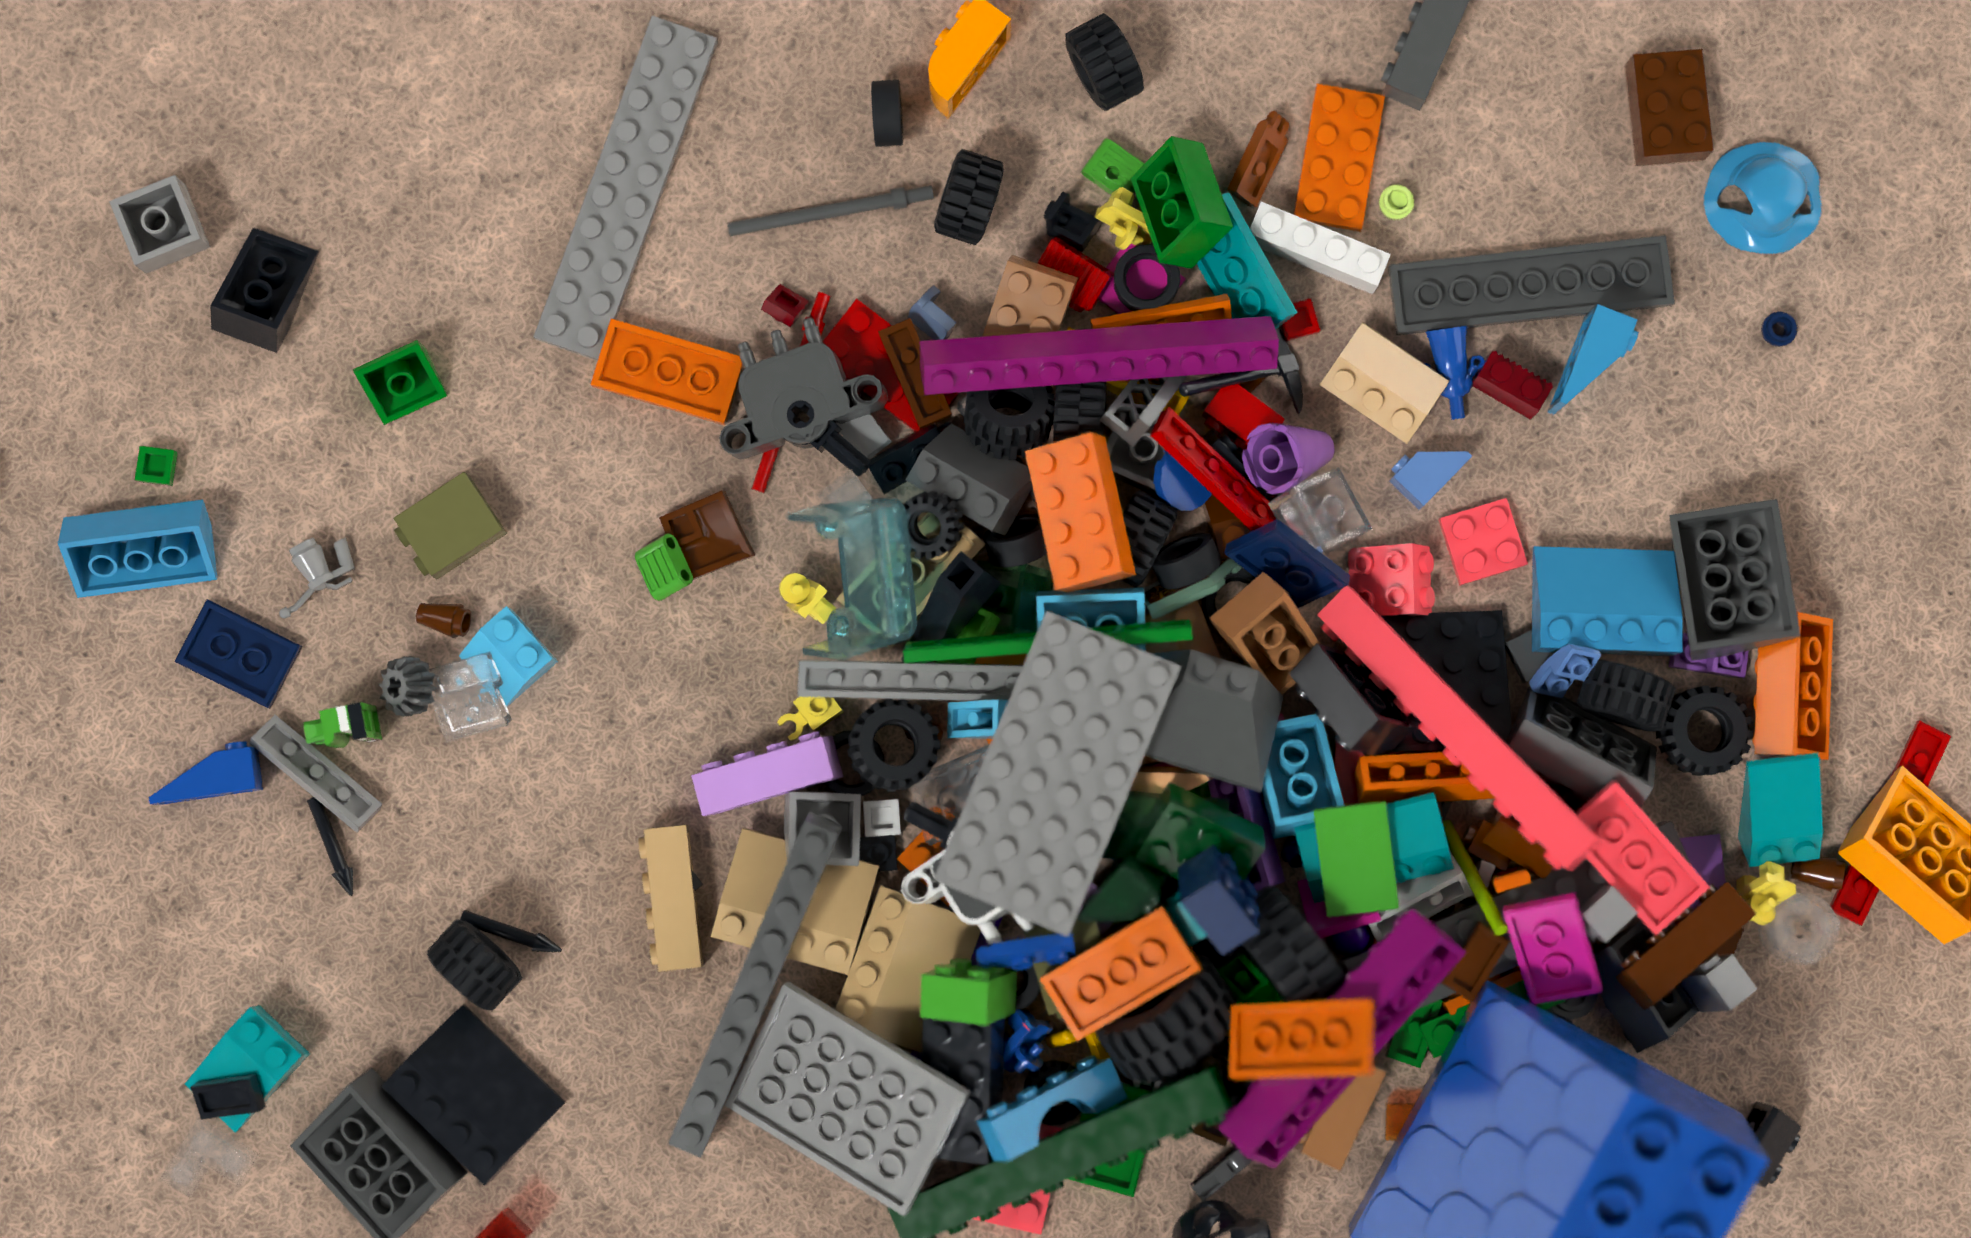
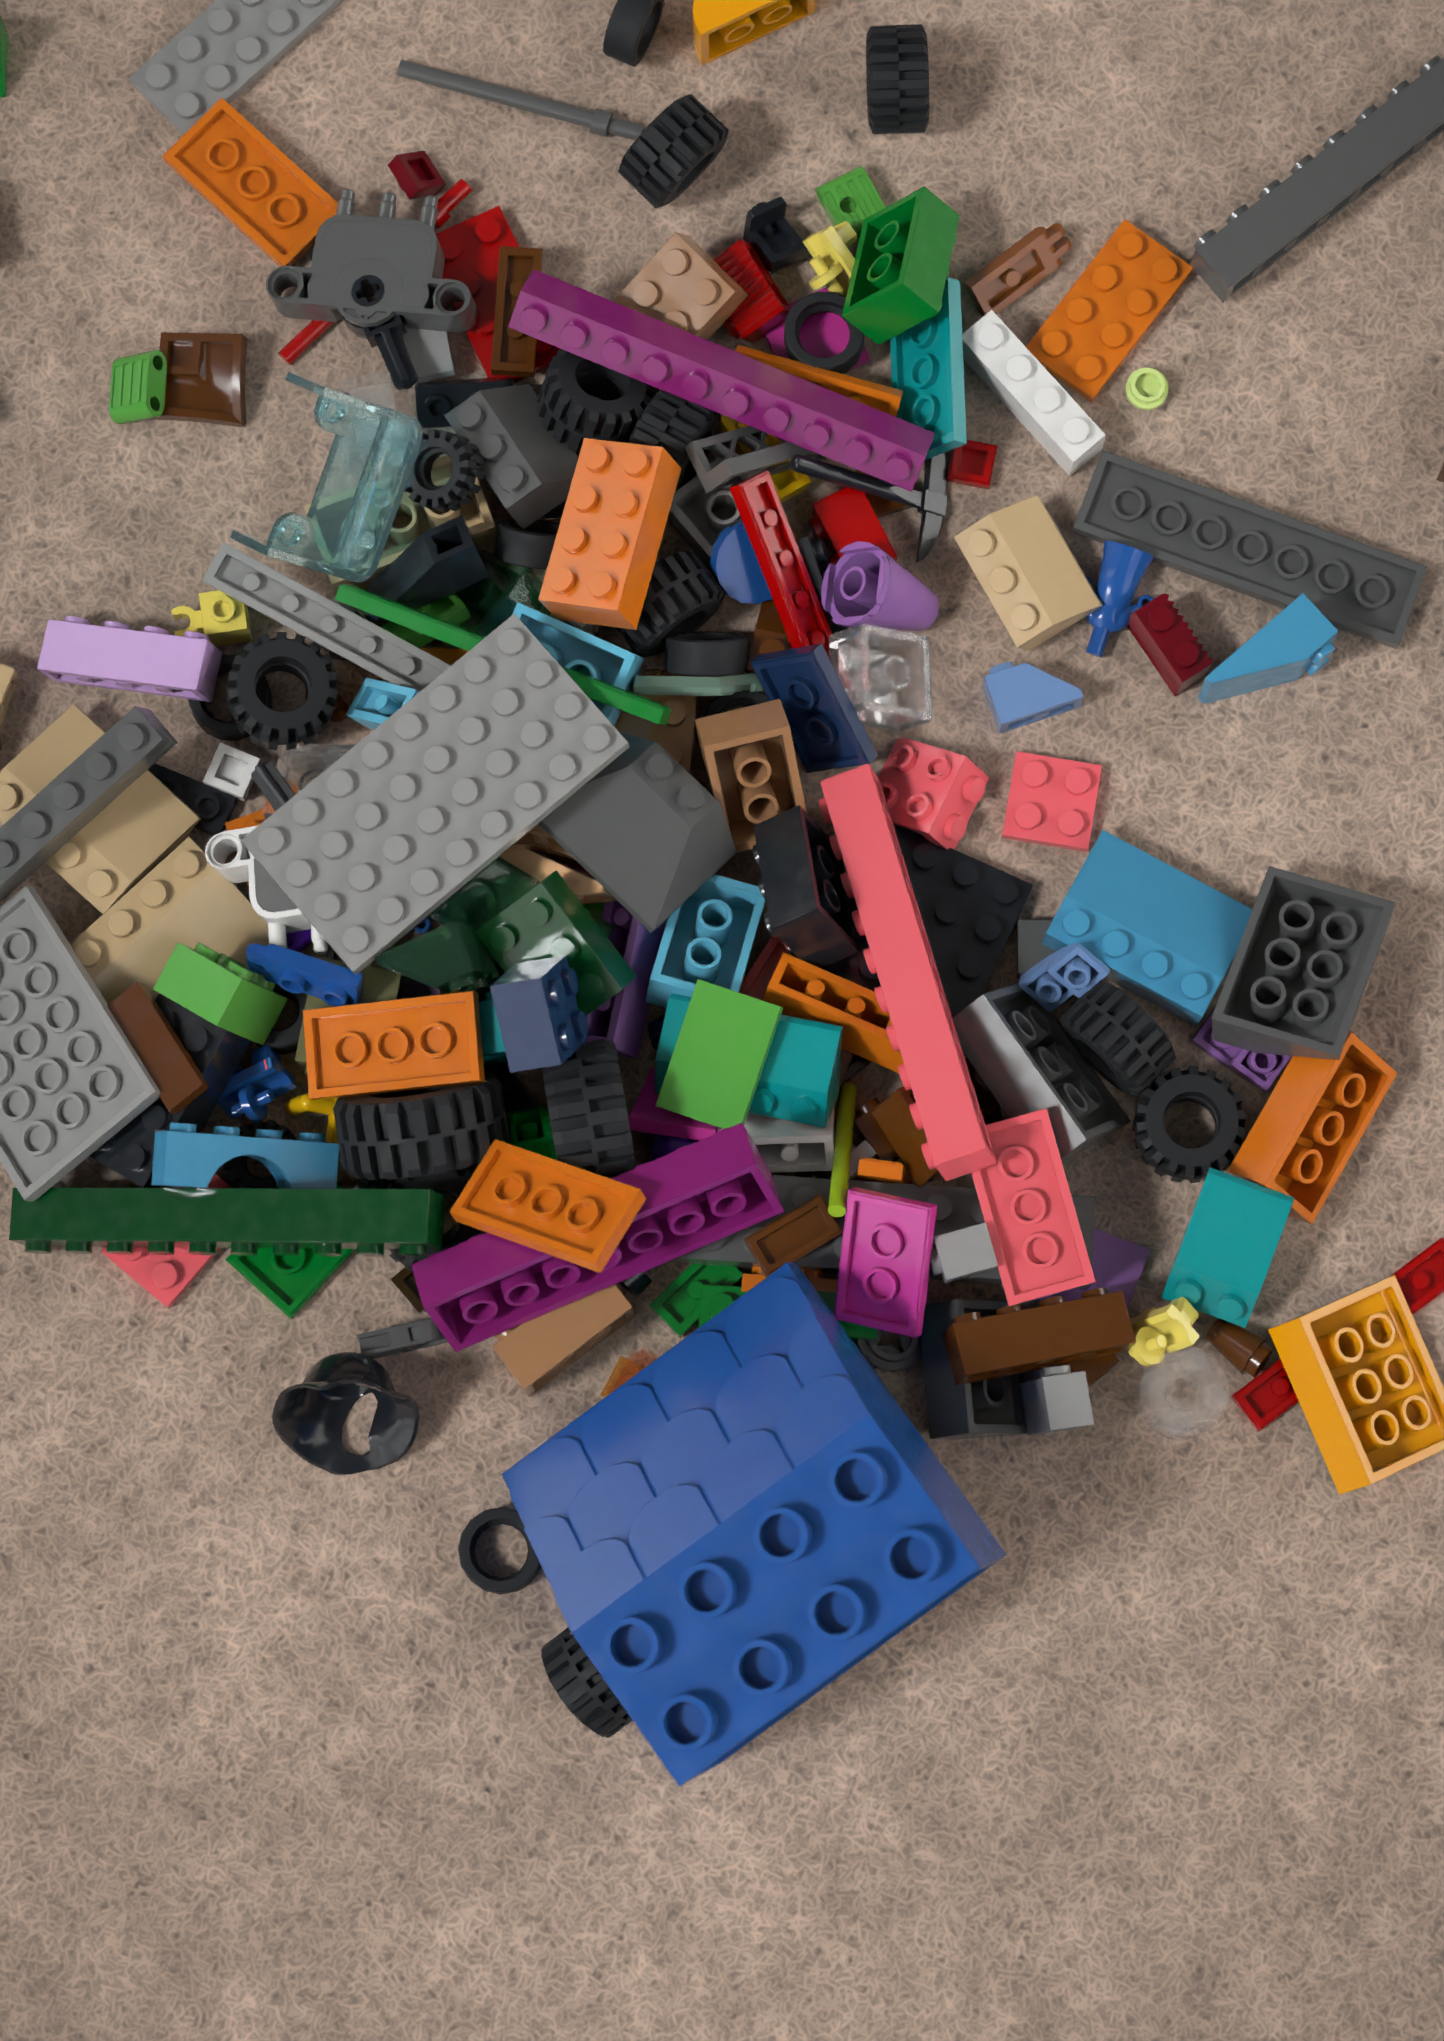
camera: 30 degrees right, 5 degrees down
(805, 597) = (267, 478): light yellow hips -> none
(833, 806) = (194, 736): light grey slope -> none
(930, 317) = (565, 258): sand blue tile -> none
(947, 1058) = (158, 1047): none -> reddish brown tile
(1776, 1135) = (1018, 1612): black slope -> none

